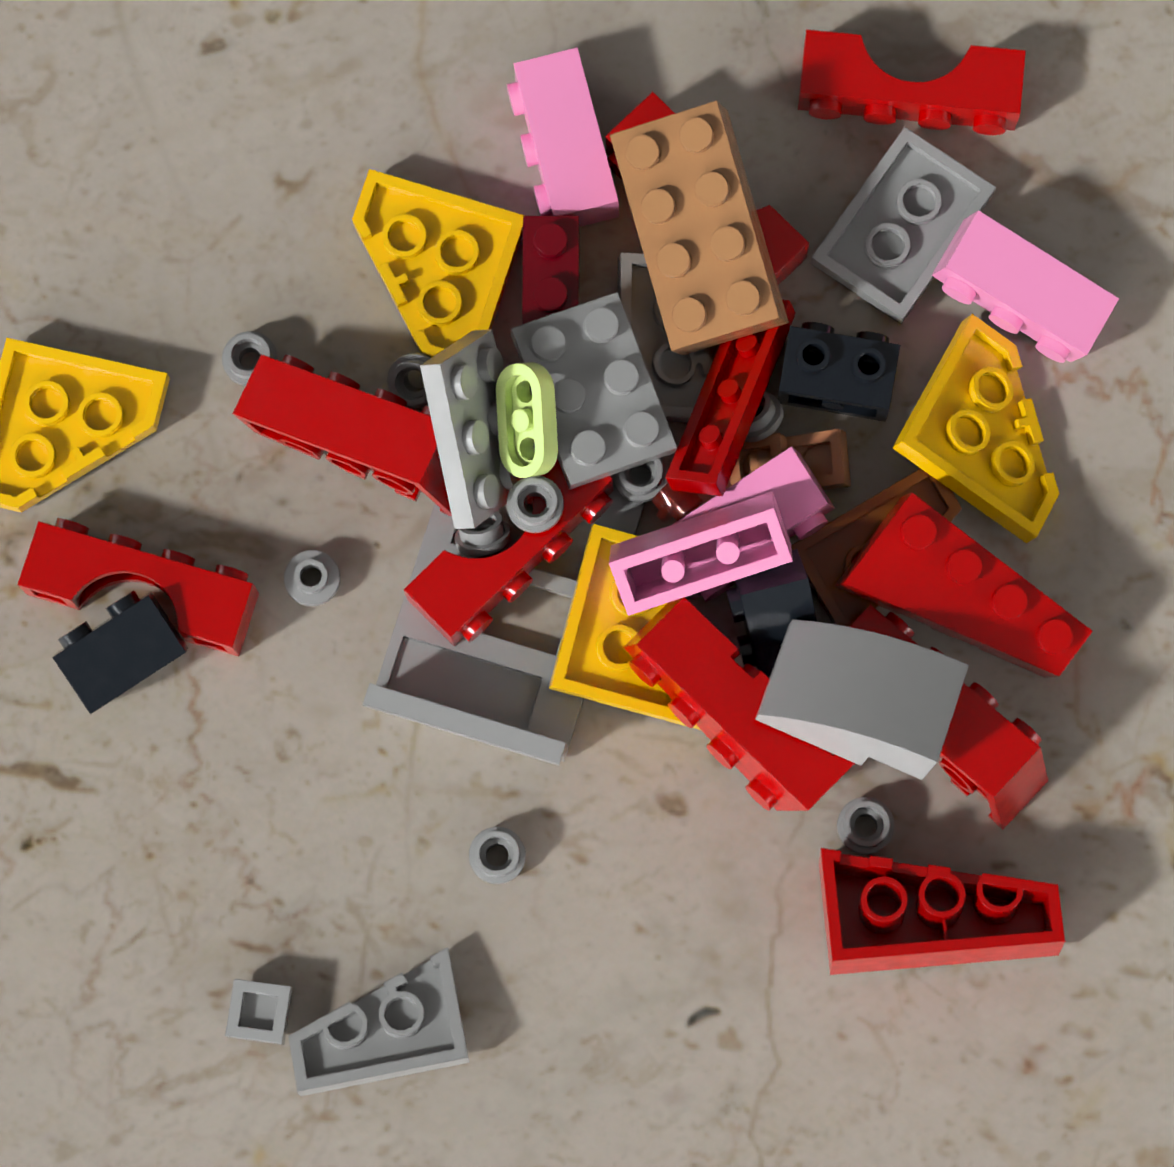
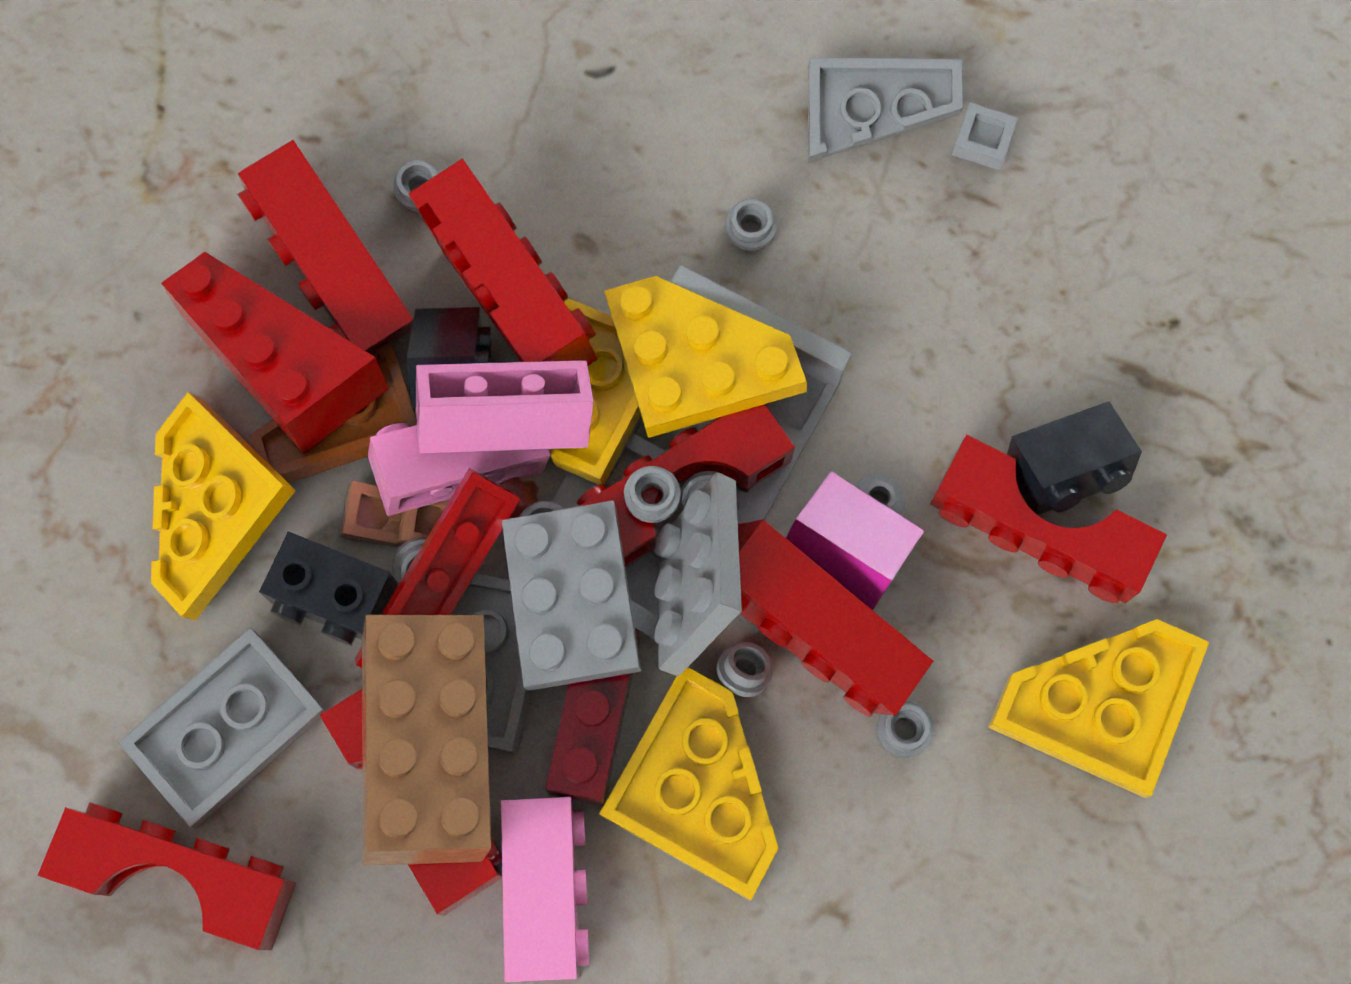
camera: 175 degrees left, 5 degrees down
(331, 520) = (854, 538): none -> slope
(523, 666) = (696, 356): none -> yellow plate
(526, 419) = (643, 574): yellowish green plate -> none
(863, 695) = (384, 243): light grey slope -> none
(923, 916) = (384, 88): red wedge -> none
(1024, 288) = (123, 627): bright pink brick -> none

